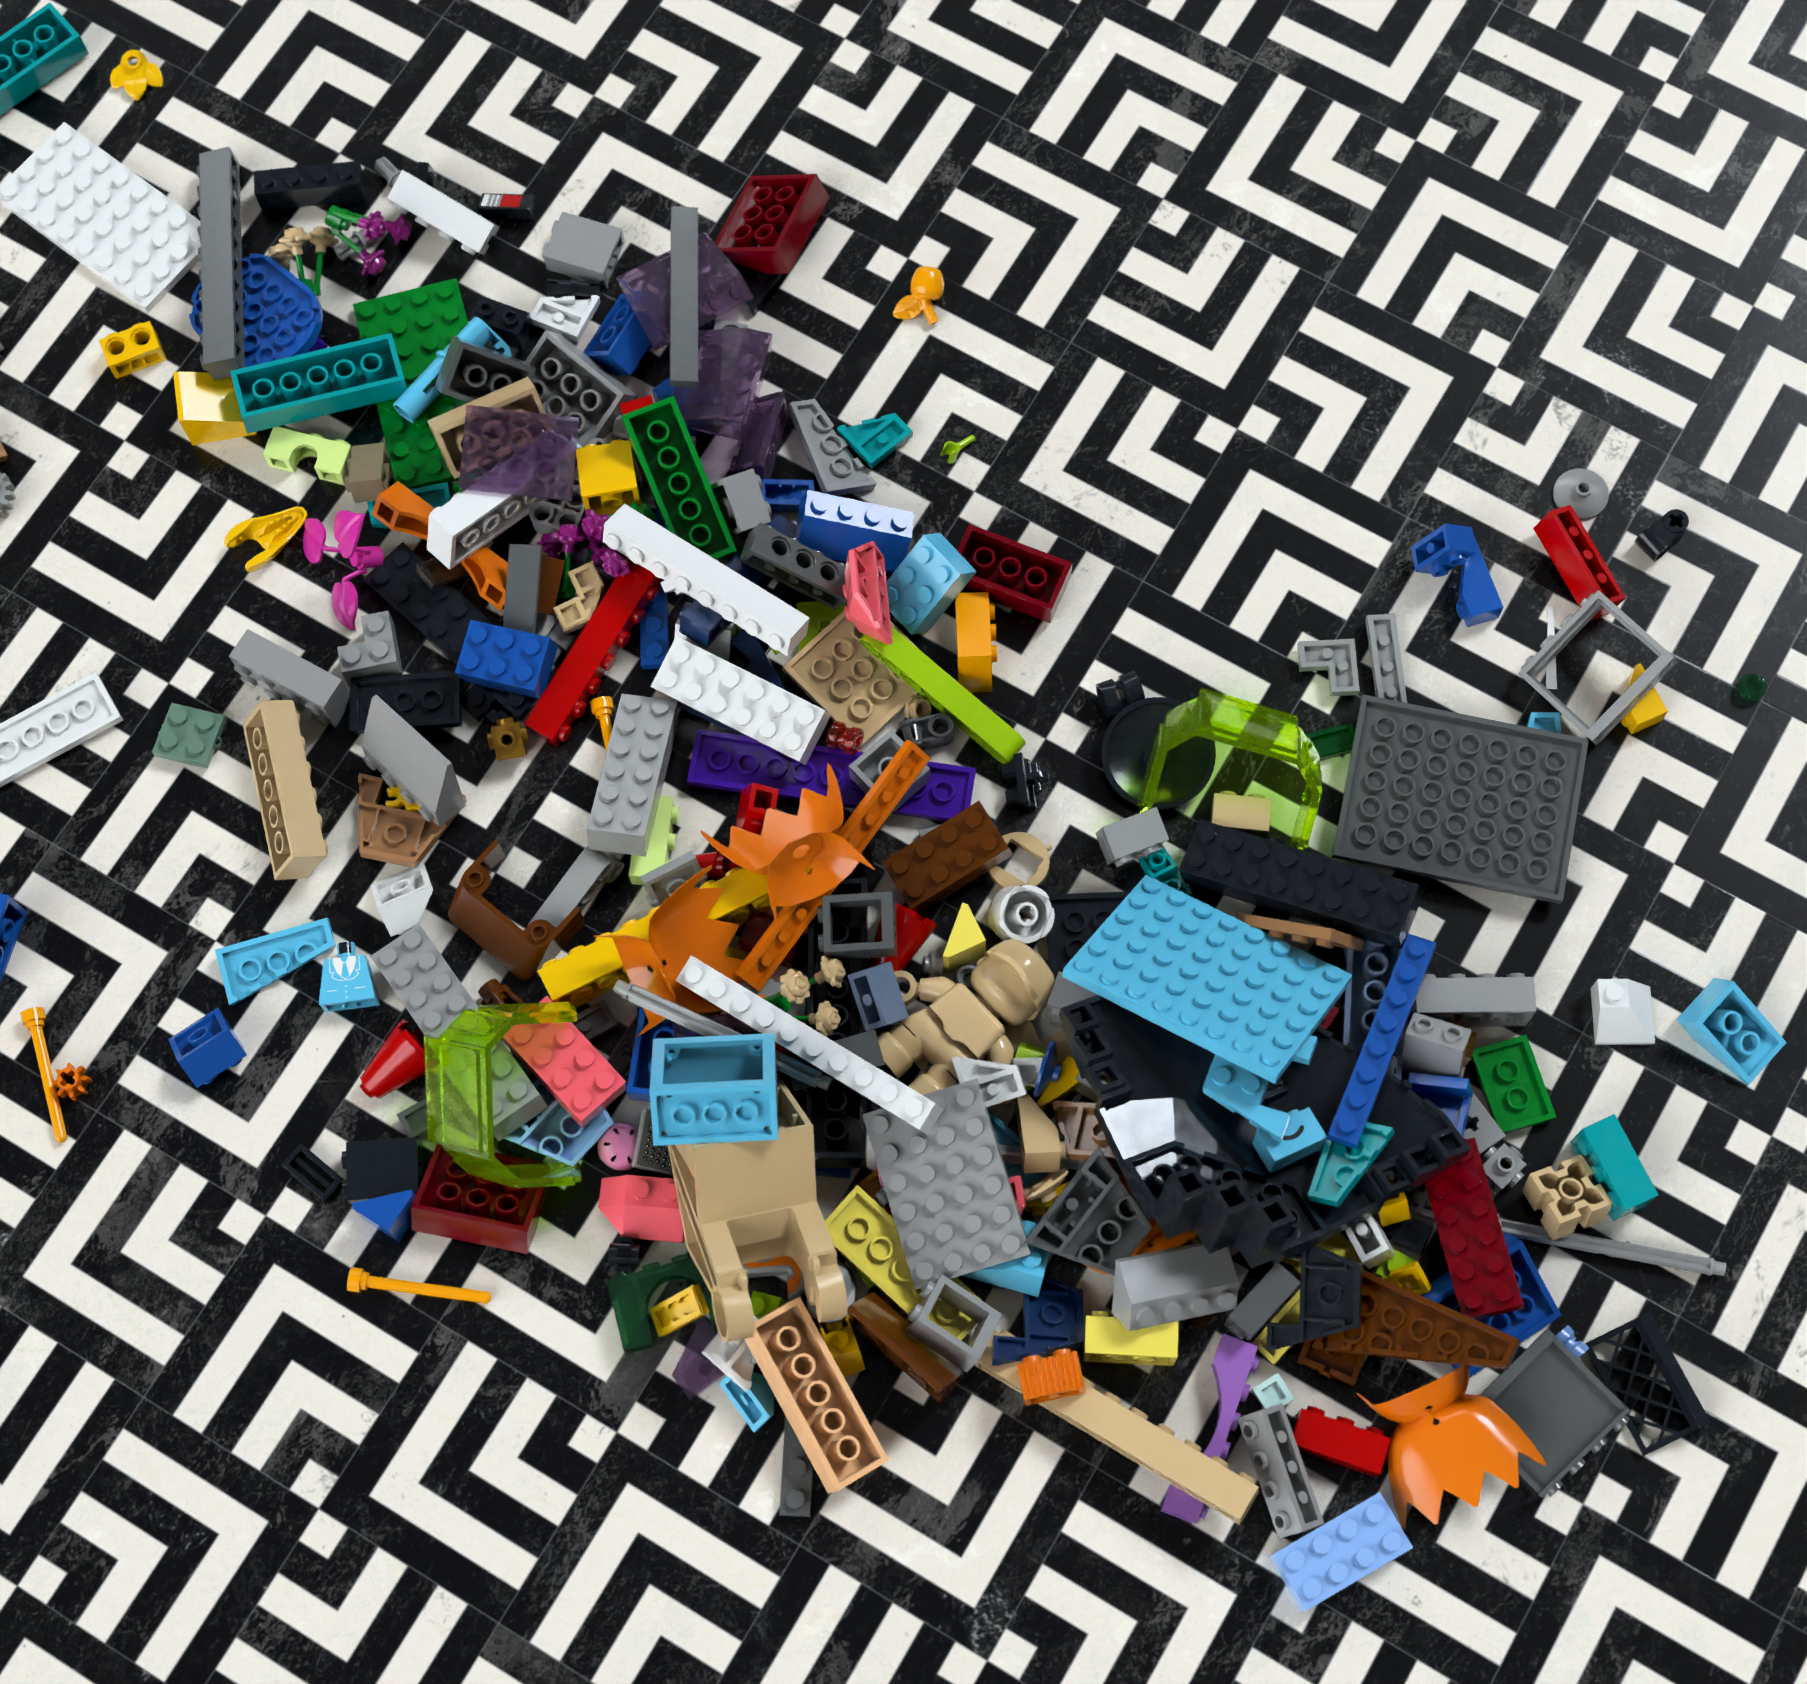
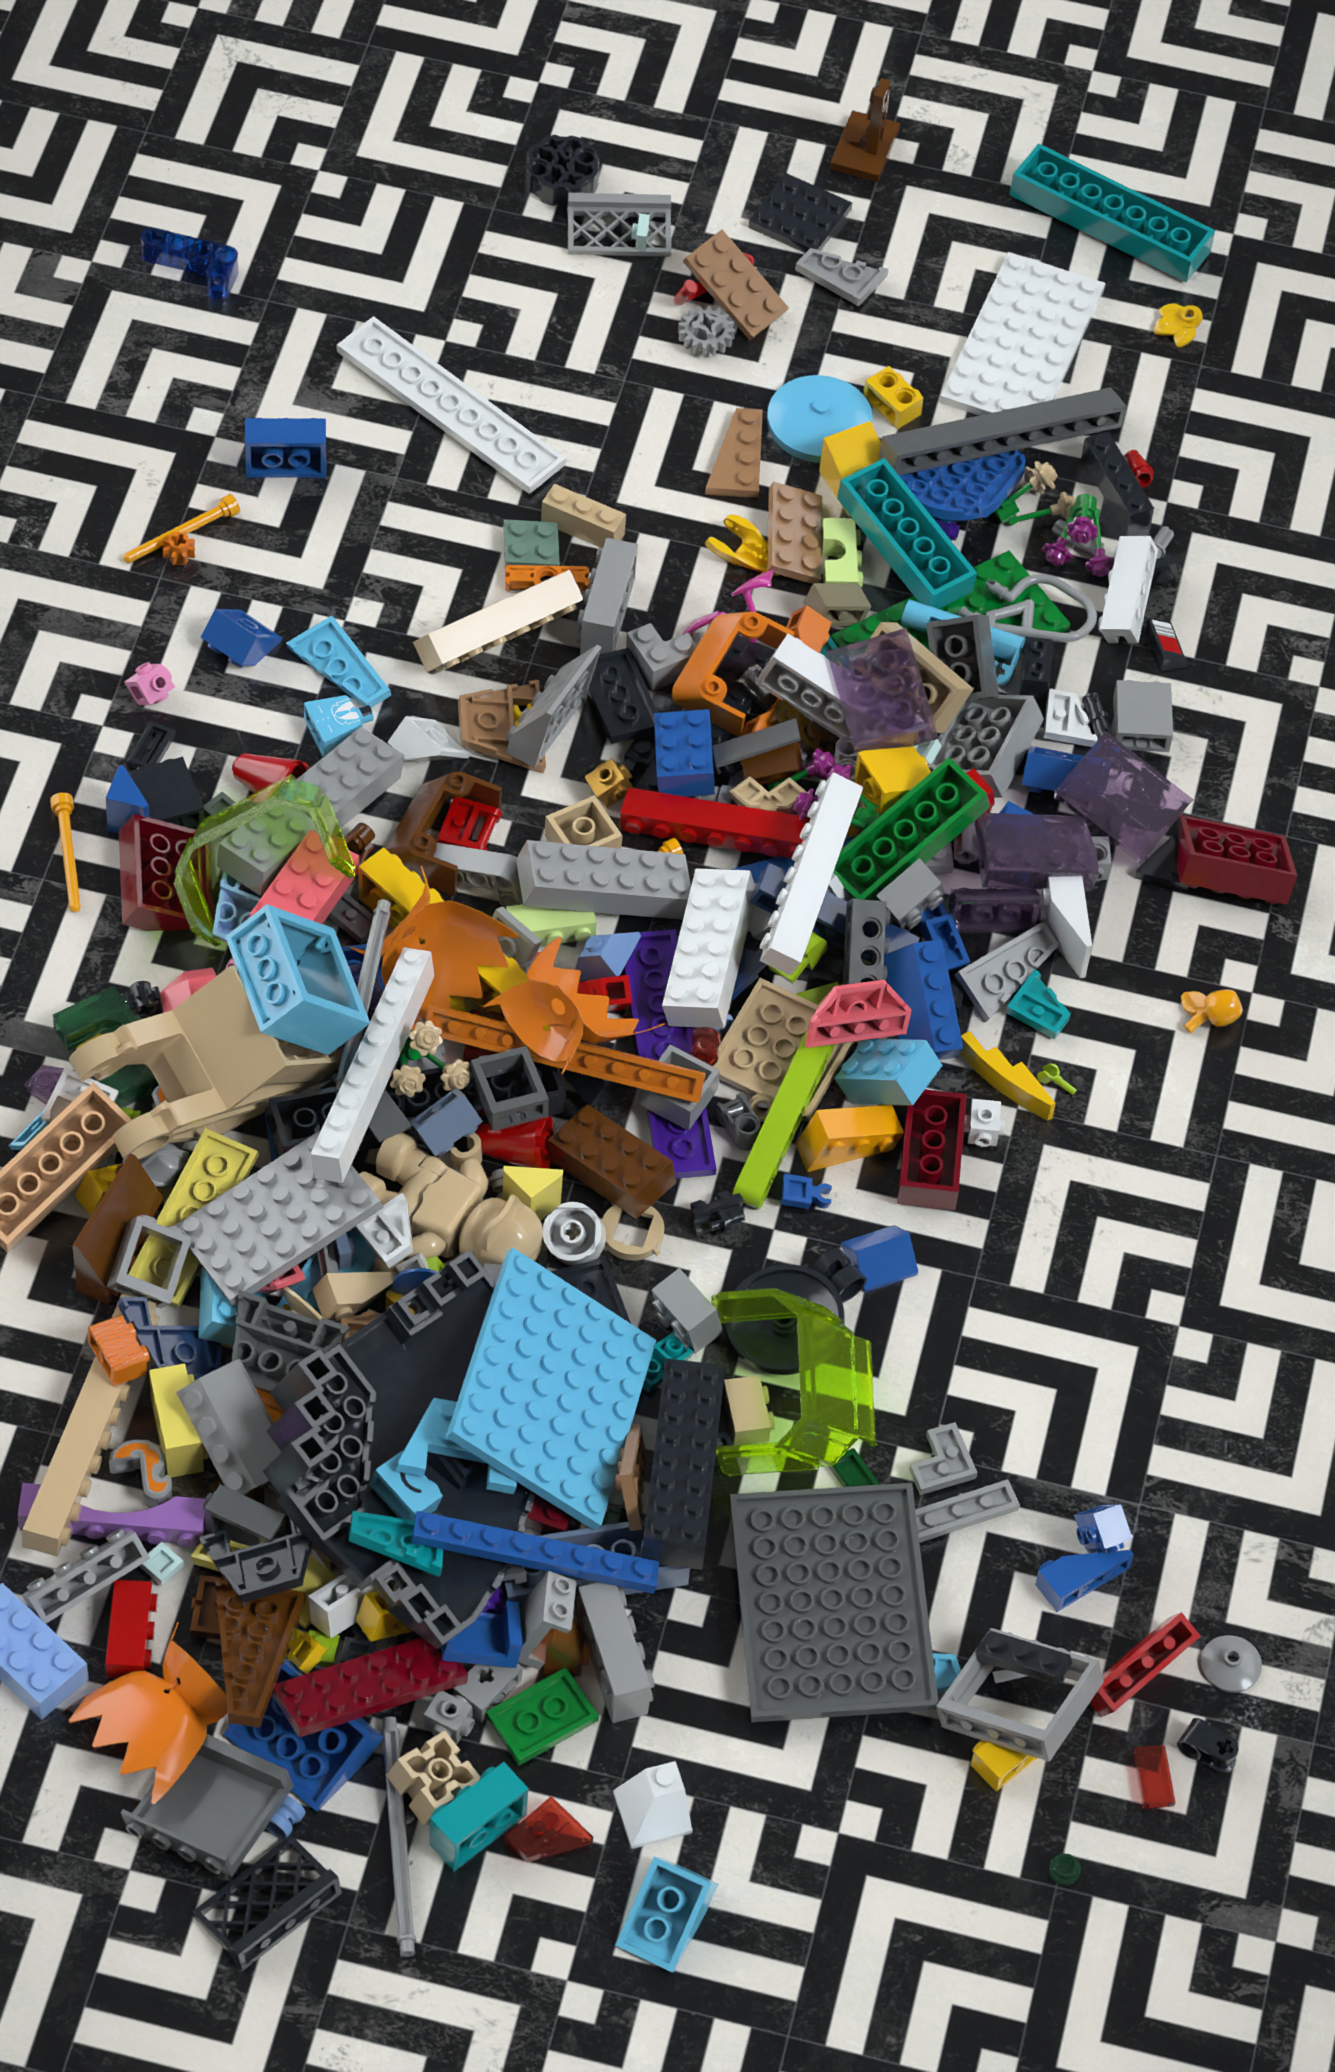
camera: 65 degrees right, 15 degrees down
(129, 425) = (811, 410): none -> medium azure dish
(156, 513) = (738, 461): none -> medium nougat wing
(177, 675) = (582, 516): none -> tan brick
(228, 749) = (526, 576): none -> orange piece
(239, 1153) = (150, 684): none -> bright pink brick
(265, 486) = (794, 533): none -> medium nougat plate
(296, 159) = (1140, 467): none -> red cone
(407, 603) = (699, 687): none -> orange windscreen
(431, 307) = (1027, 608): none -> light grey piece
(497, 552) = (810, 734): none -> dark brown plate
(510, 895) = (461, 821): none -> red plate
(563, 781) = (583, 825): none -> tan brick
(684, 296) = (1107, 789): dark grey tile -> none
(710, 799) = (606, 955): none -> medium blue slope
(804, 378) = (1067, 918): none -> white slope
(953, 483) = (1013, 1082): none -> yellow slope
(995, 517) = (984, 1123): none -> white brick
(1019, 701) = (799, 1192): none -> blue plate
(1101, 652) = (882, 1256): none -> blue slope
(1169, 1378) = (151, 1460): none -> light grey animal
(1568, 652) = (1023, 1657): none -> black plate
(1632, 1110) = (547, 1832): none -> clear red wing
(1678, 588) = (1154, 1776): none -> clear red tile

